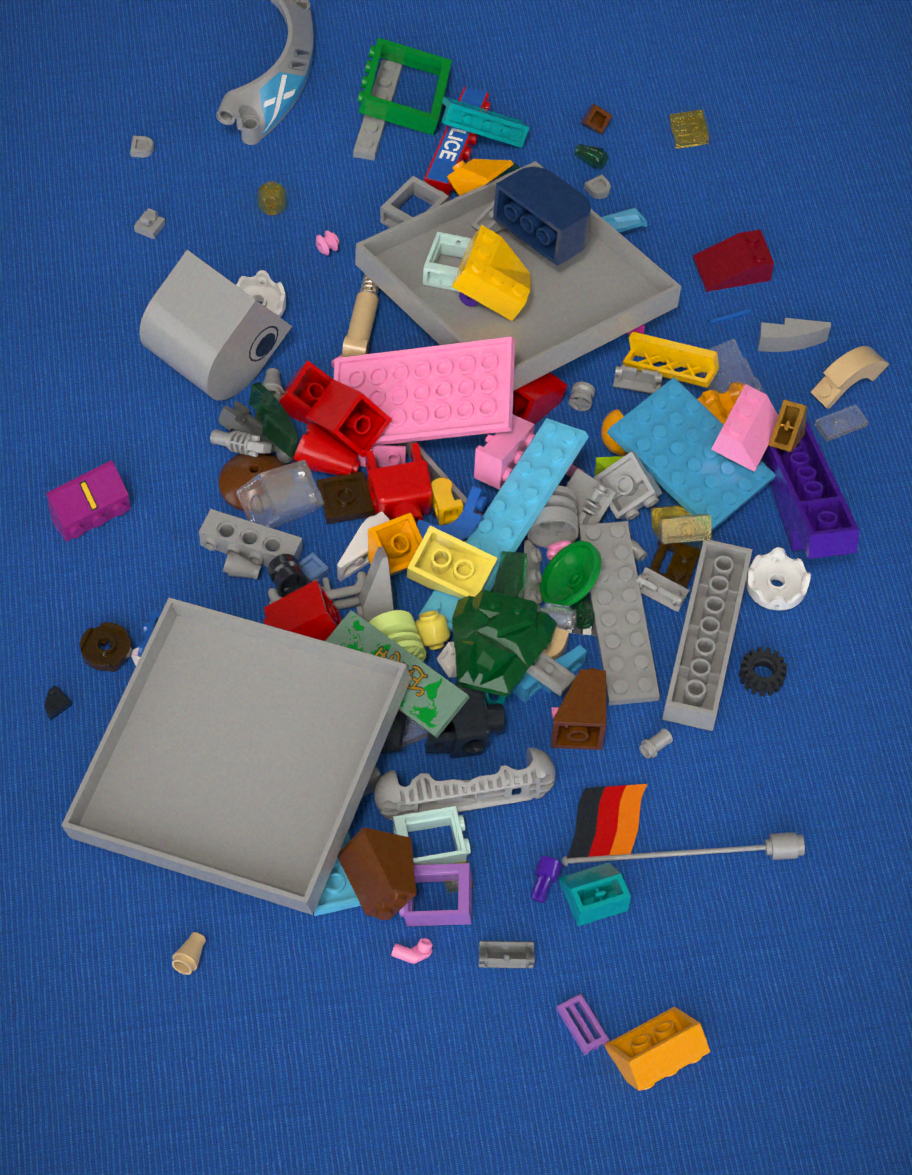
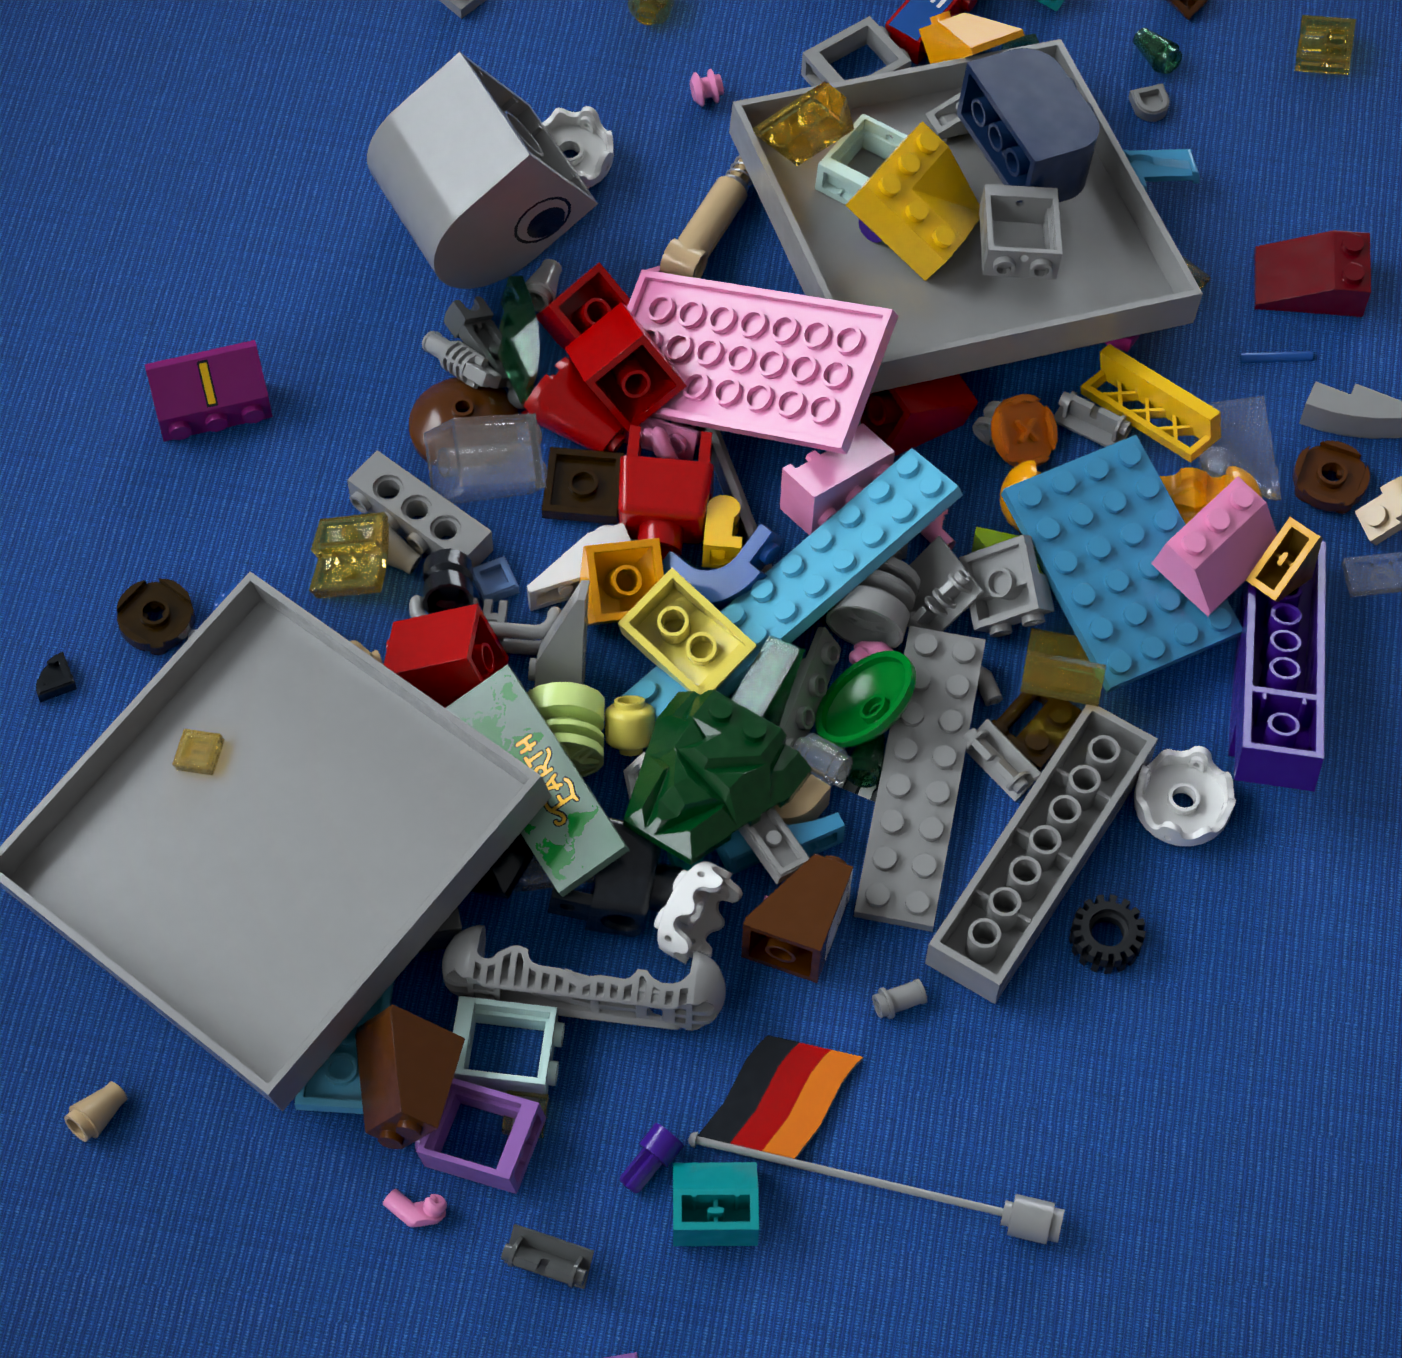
camera: 20 degrees right, 5 degrees up
(173, 717) = (198, 751): none -> clear yellow tile
(218, 576) = (350, 555): none -> clear yellow slope
(384, 457) = (659, 441): none -> bright pink arm
(408, 245) = (807, 124): none -> clear yellow slope
(515, 728) = (694, 910): none -> white plate
(568, 258) = (1039, 207): none -> light grey window
(600, 394) = (1023, 430): none -> orange tile
(786, 386) = (1326, 494): none -> reddish brown plate

